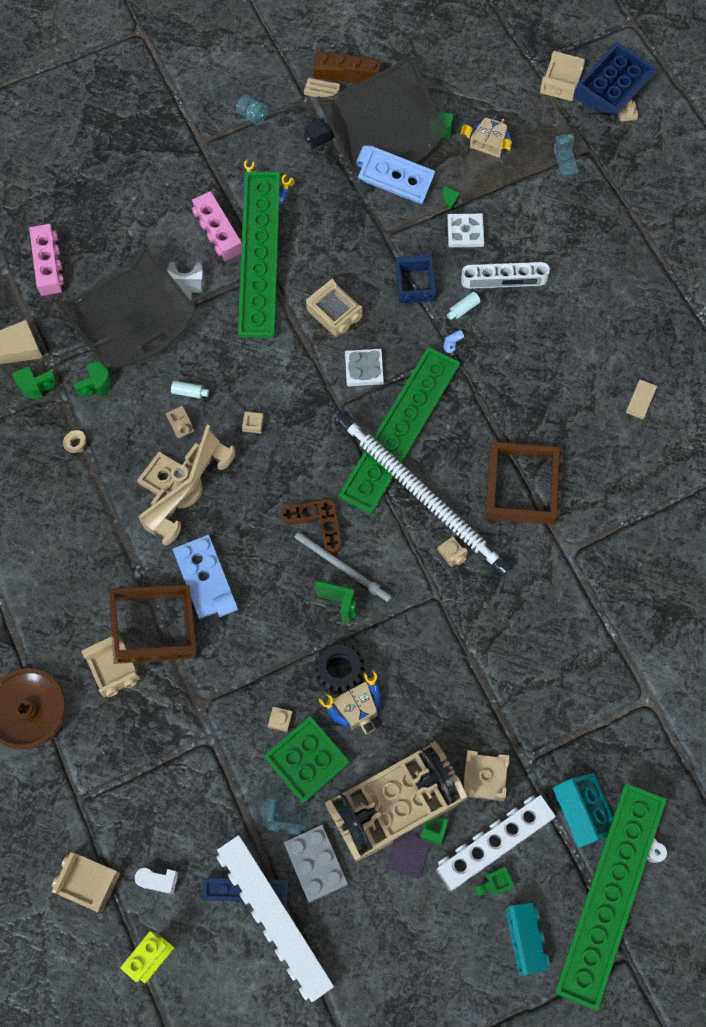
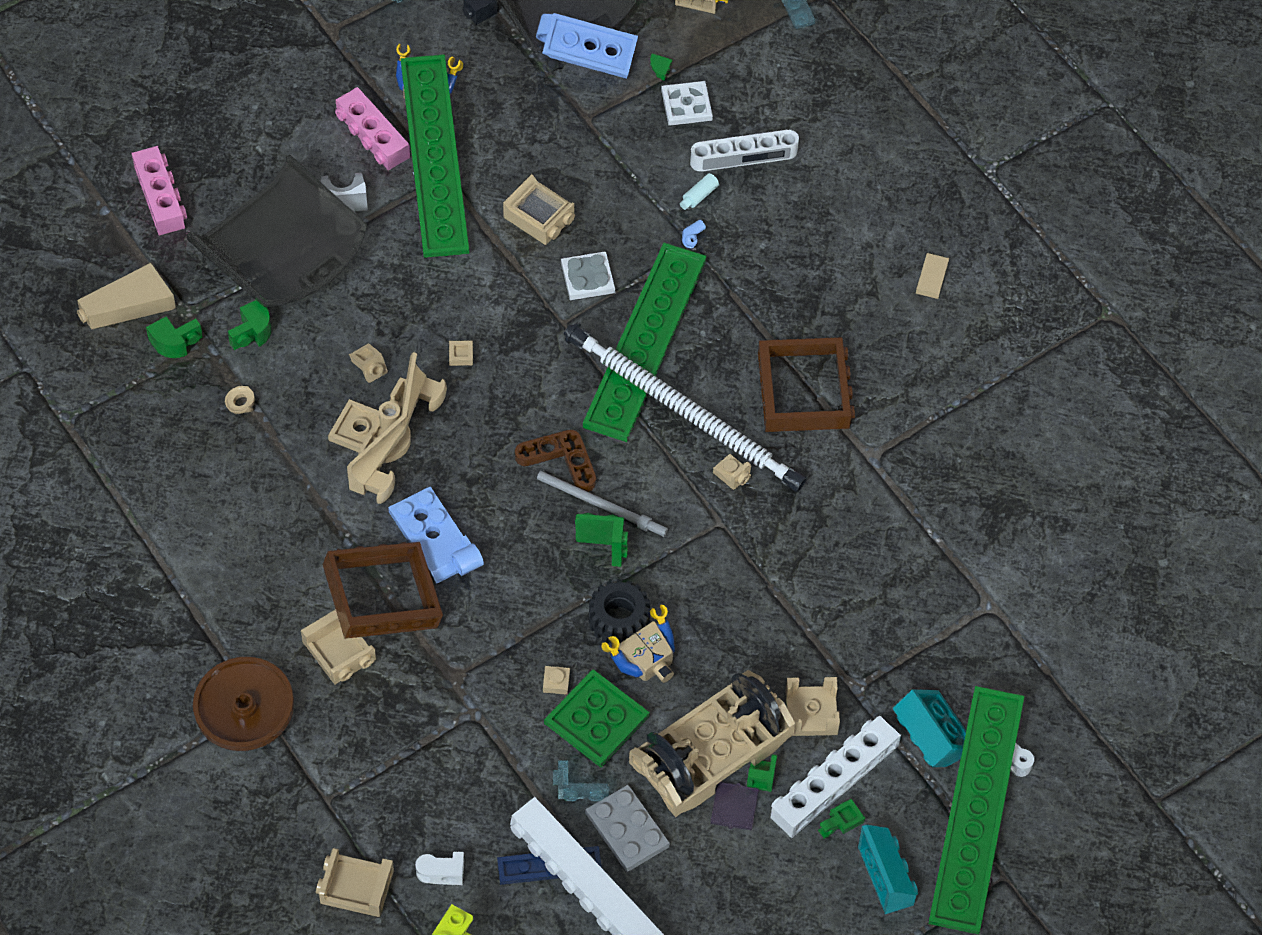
camera: 15 degrees left, 10 degrees down
(188, 389) = (372, 324): light aqua cylinder -> none
(411, 264) = (632, 148): dark blue window -> none

